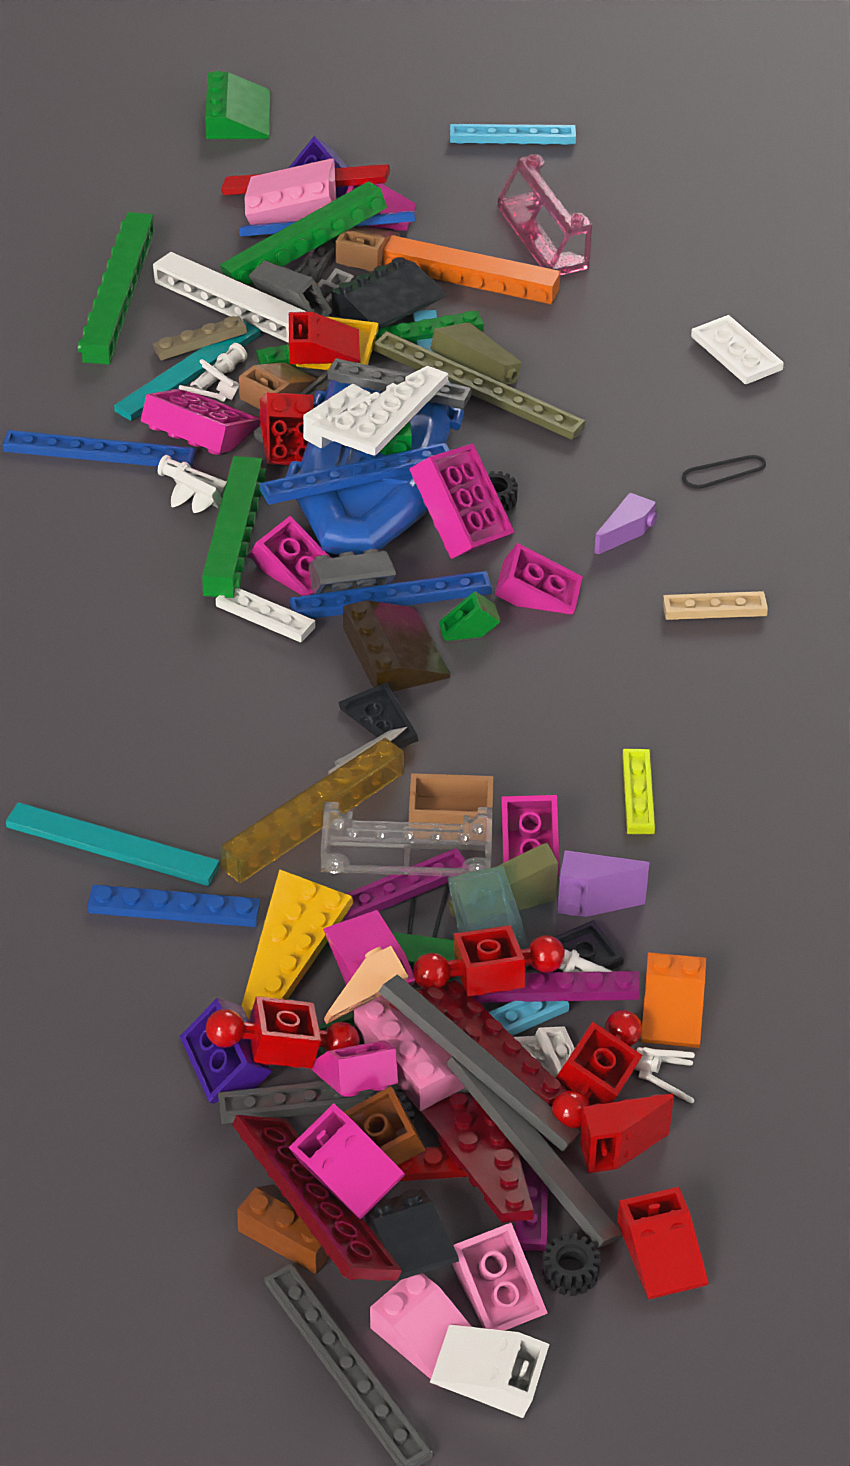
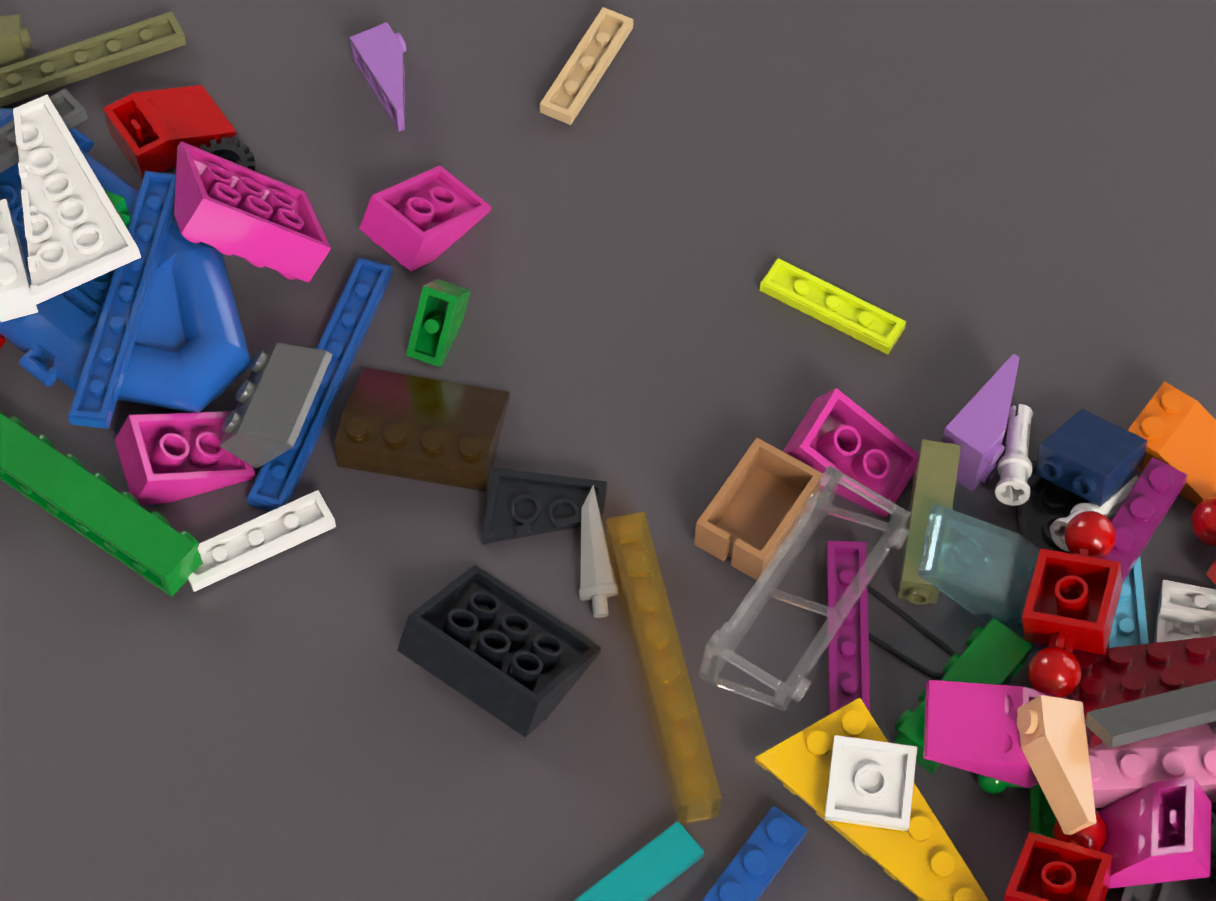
camera: 60 degrees left, 15 degrees up
(272, 737) = (497, 649): none -> black slope
(295, 921) = (870, 783): none -> white tile
(506, 451) = (156, 121): none -> red slope
(582, 913) = (1015, 465): none -> white pin
(615, 943) = (1091, 457): none -> dark blue piece

